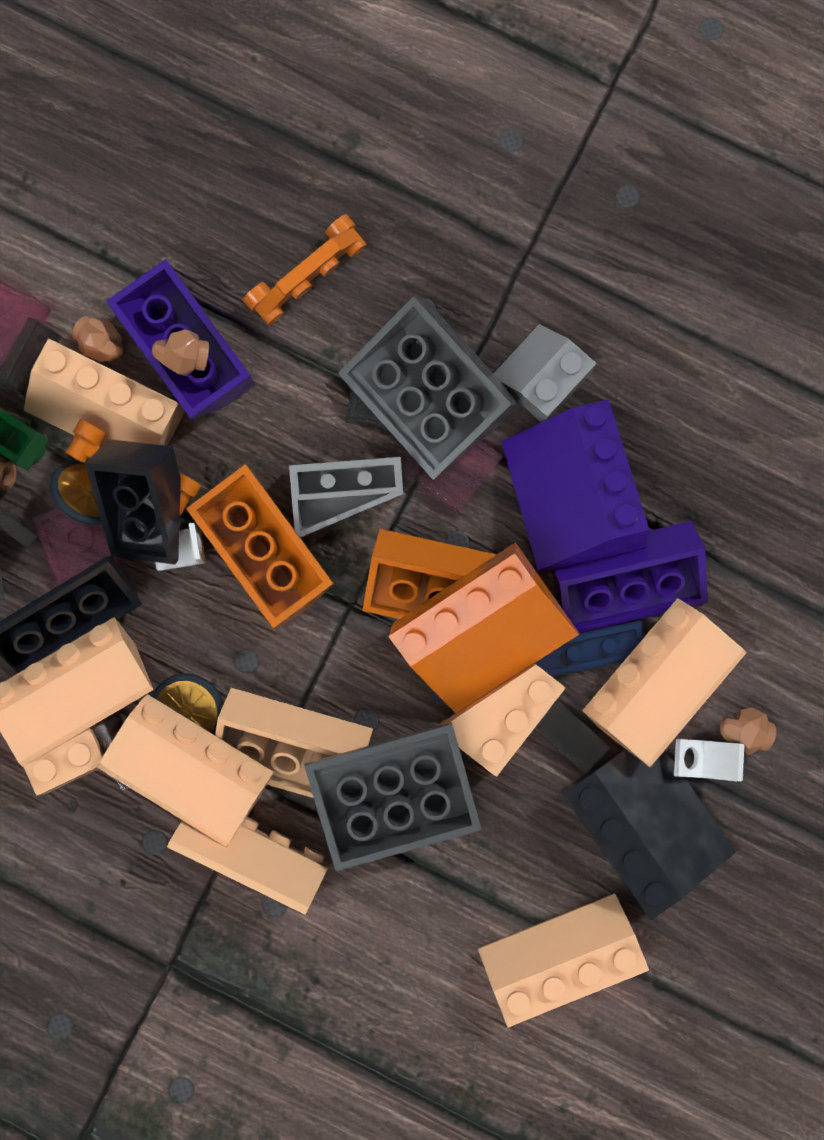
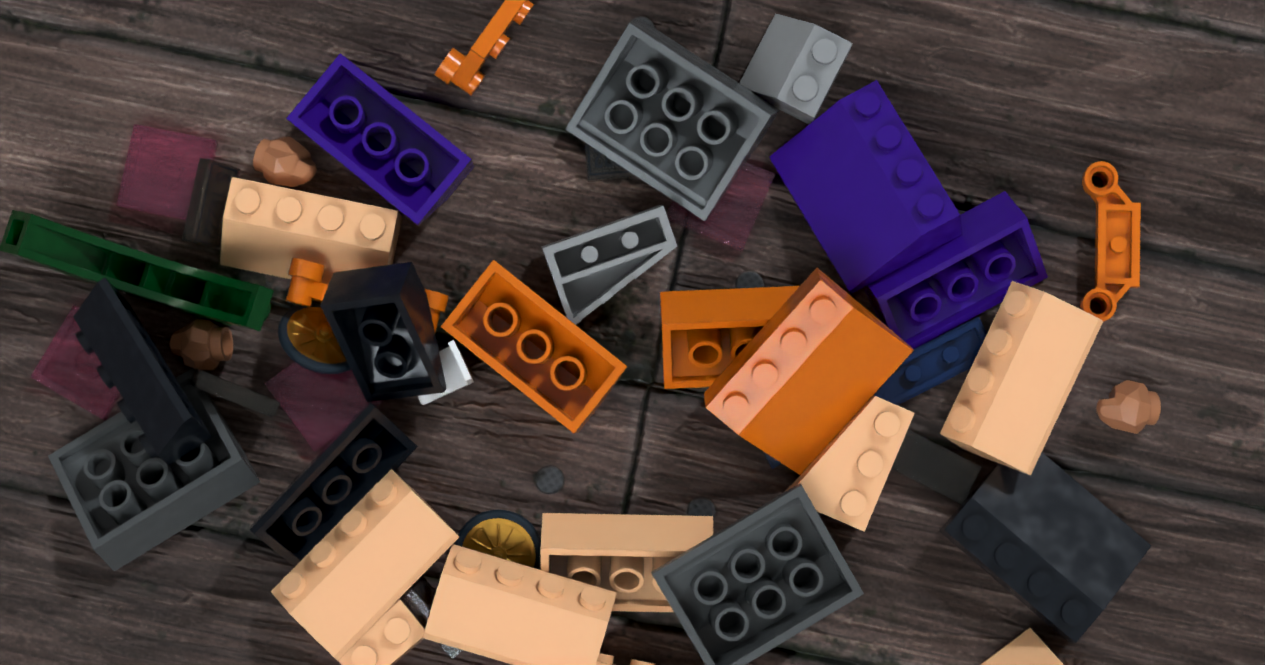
camera: 15 degrees left, 0 degrees up
(182, 352) = (391, 154): nougat rock -> none
(711, 760) = (1096, 449): white bracket -> none
(773, 586) = (1115, 241): none -> orange plate

